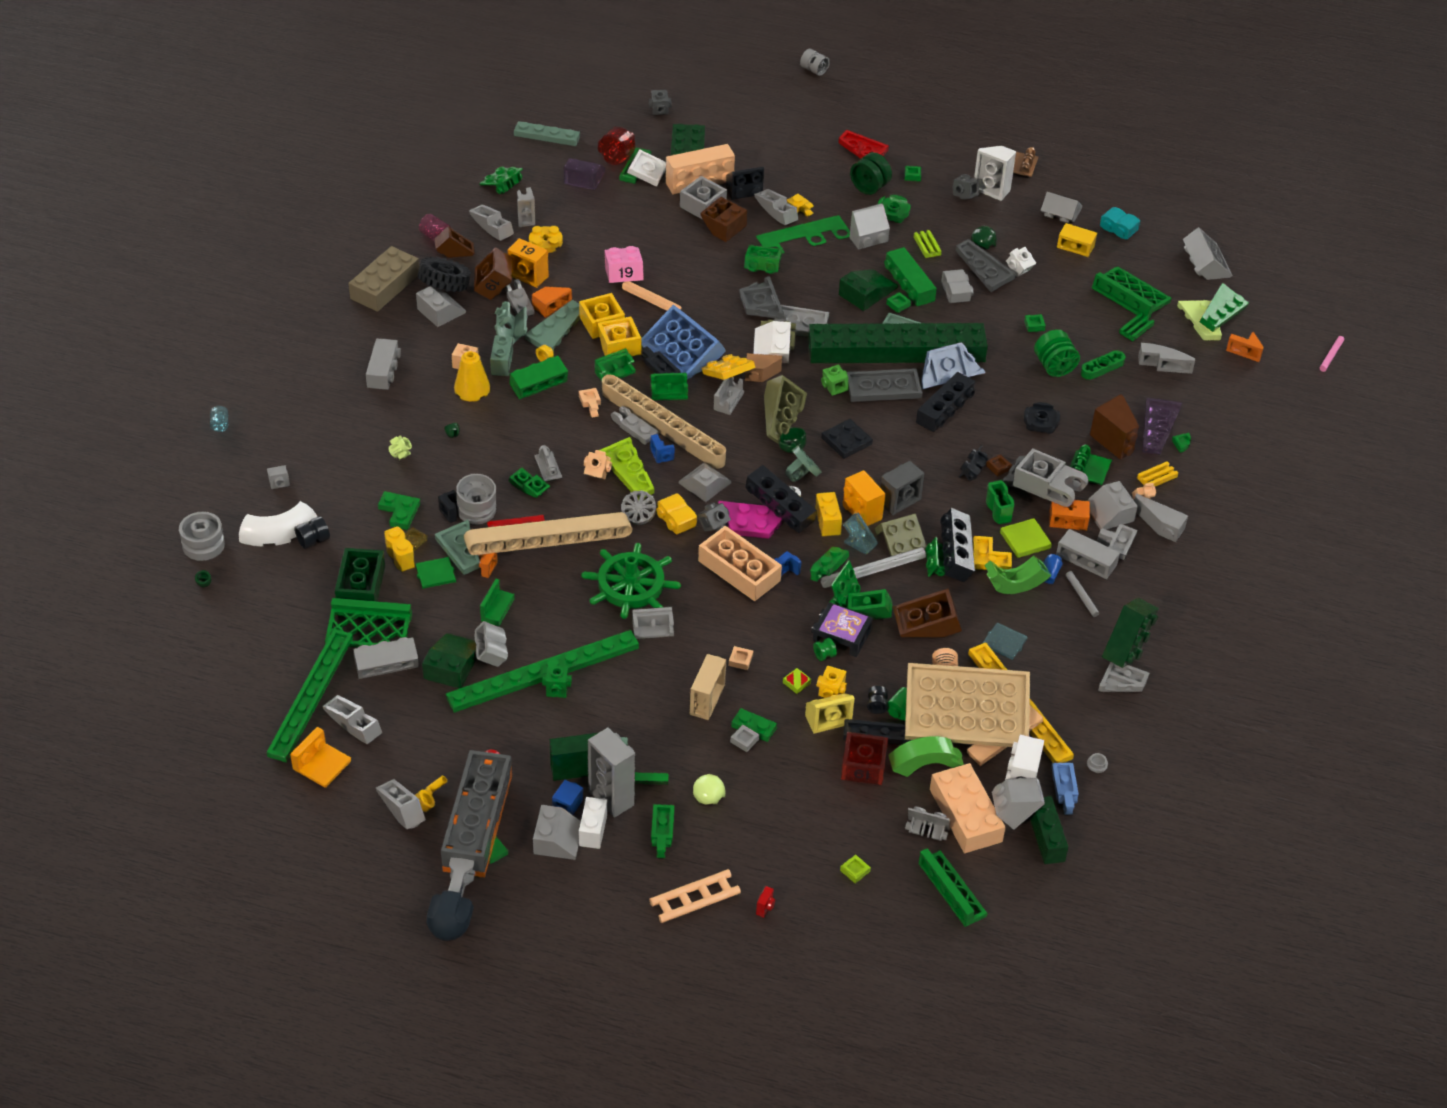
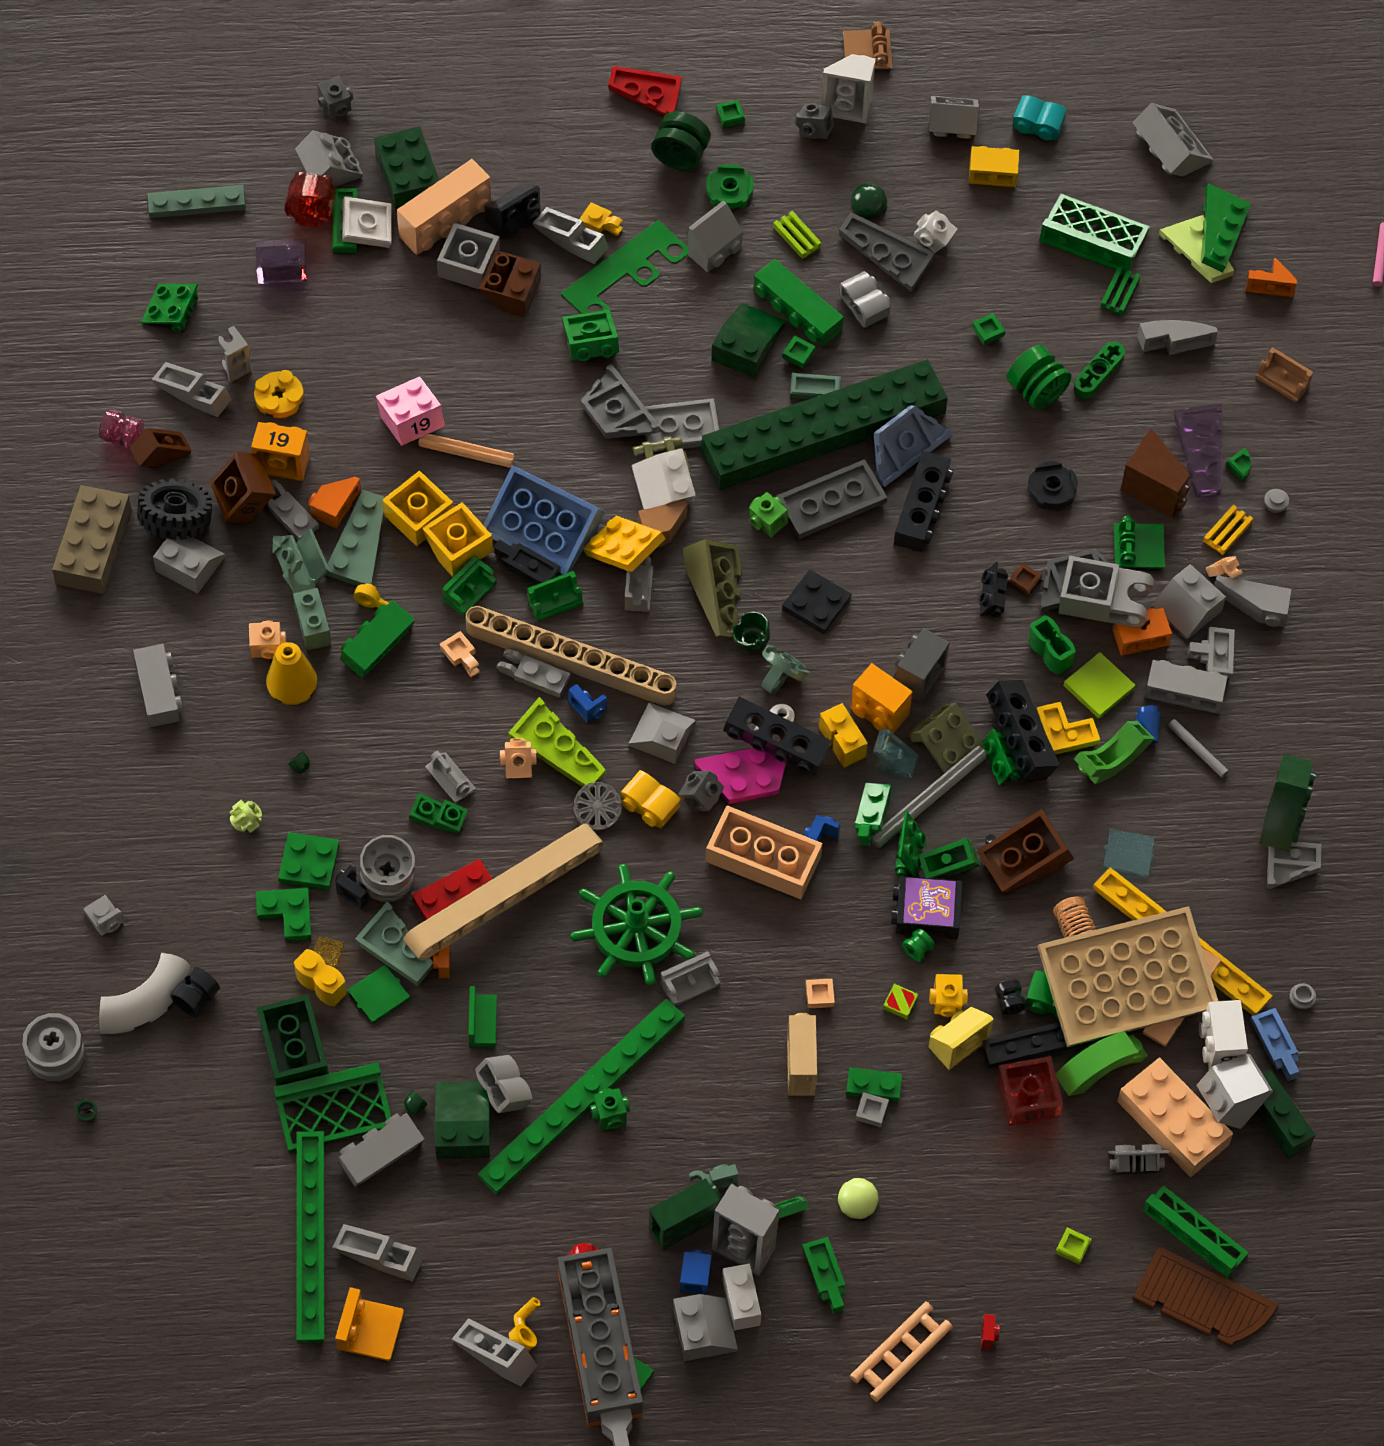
camera: 20 degrees left, 15 degrees up
(425, 639) = (414, 1103): none -> dark green hinge
(428, 485) = (309, 861): none -> green plate
(644, 130) = (329, 156): none -> light grey slope
(940, 933) = (1202, 1298): none -> reddish brown piece
(1199, 468) = (1276, 500): none -> light grey plate
(1234, 399) = (1284, 375): none -> medium nougat hinge

